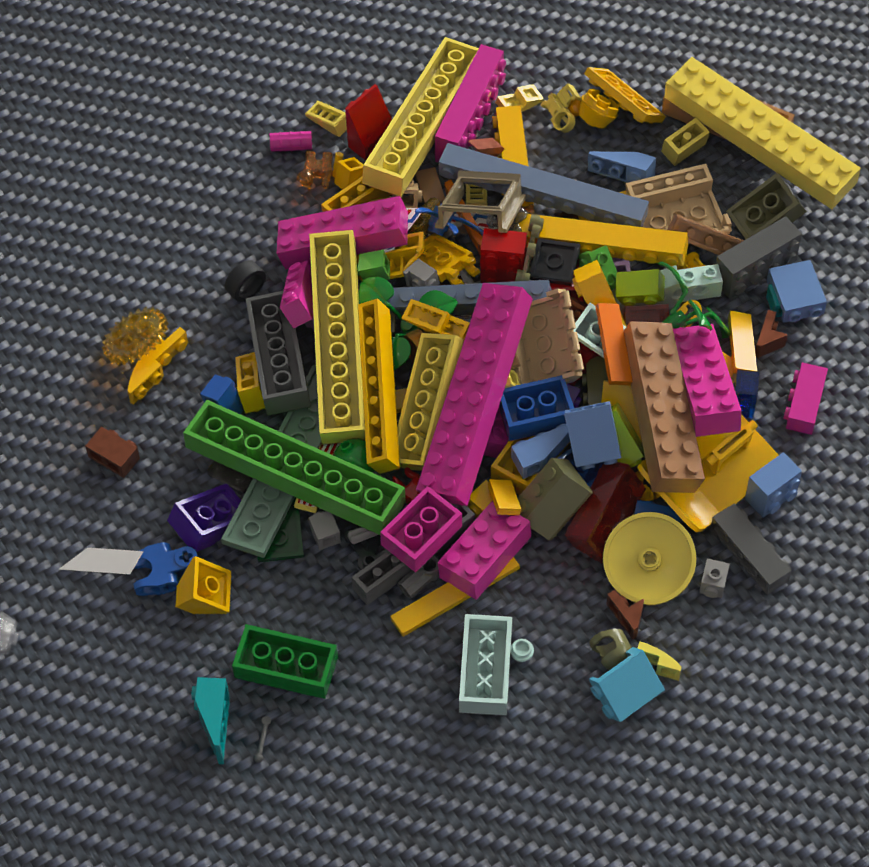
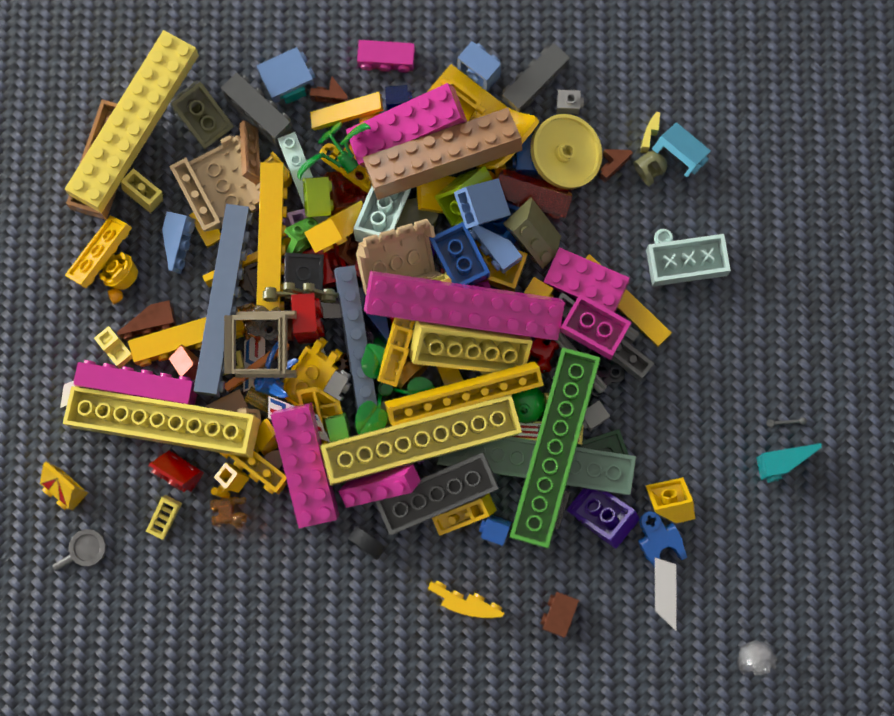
camera: 100 degrees left, 20 degrees up
(142, 325) = (428, 615): clear yellow gear -> none
(285, 661) = (723, 416): green brick -> none
(291, 141) = (199, 543): dark pink axle -> none
(314, 50) = (85, 549): none -> flat silver piece
(382, 32) = (61, 486): none -> yellow slope
(504, 497) = (542, 271): yellow tile -> none
(542, 133) = (153, 318): none -> copper slope
(559, 103) = (118, 310): light yellow piece -> none
(613, 344) = (390, 202): orange tile -> none

